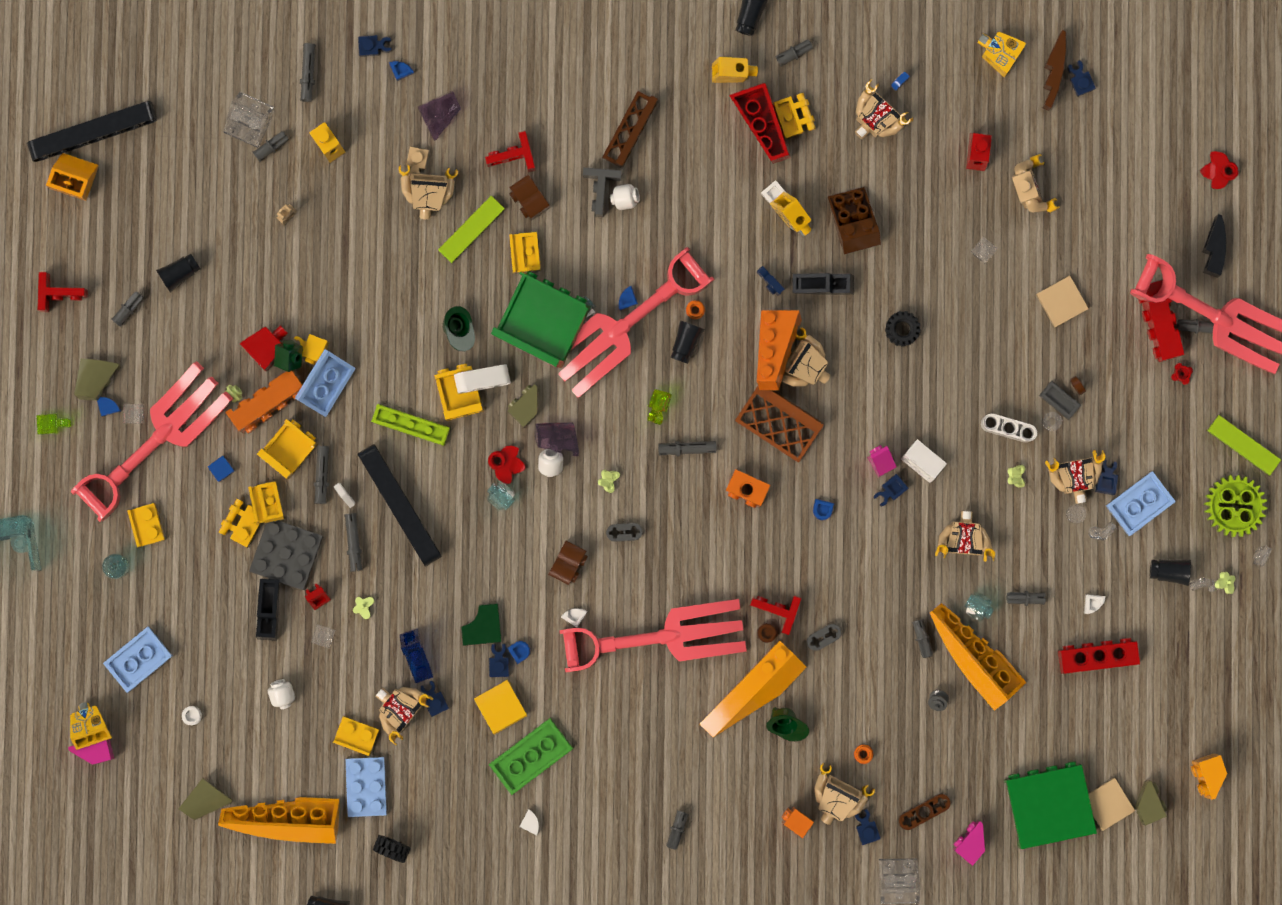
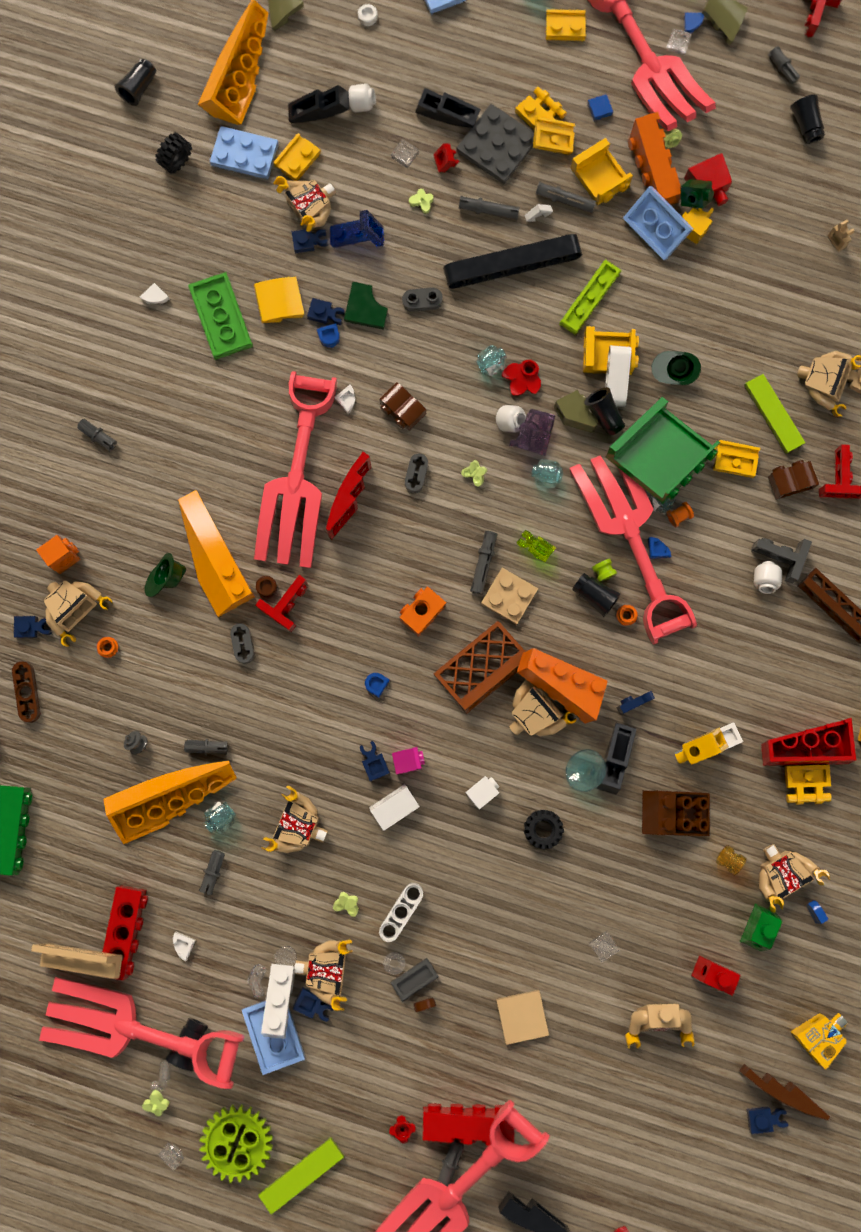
camera: 105 degrees right, 5 degrees down
(301, 730) = (319, 105): none -> black slope
(459, 577) = (422, 300): none -> dark grey plate
(518, 381) = (605, 410): none -> black plant
(589, 415) = (547, 473): none -> clear light blue head
(591, 288) = (680, 514): none -> orange bush
(662, 340) = (604, 570): none -> lime wheel
(674, 585) = (345, 500): none -> red slope
(709, 417) = (509, 596): none -> tan plate
(842, 314) = (579, 765): none -> clear light blue dish
(879, 164) = (731, 860): none -> clear yellow wheel
(887, 389) = (483, 791): none -> white brick
(928, 124) = (761, 929): none -> green torso
(1113, 506) = (277, 1001): none -> white arch
(1132, 683) = (79, 960): none -> tan fence
(1174, 628) = (125, 1027): none -> coral piece

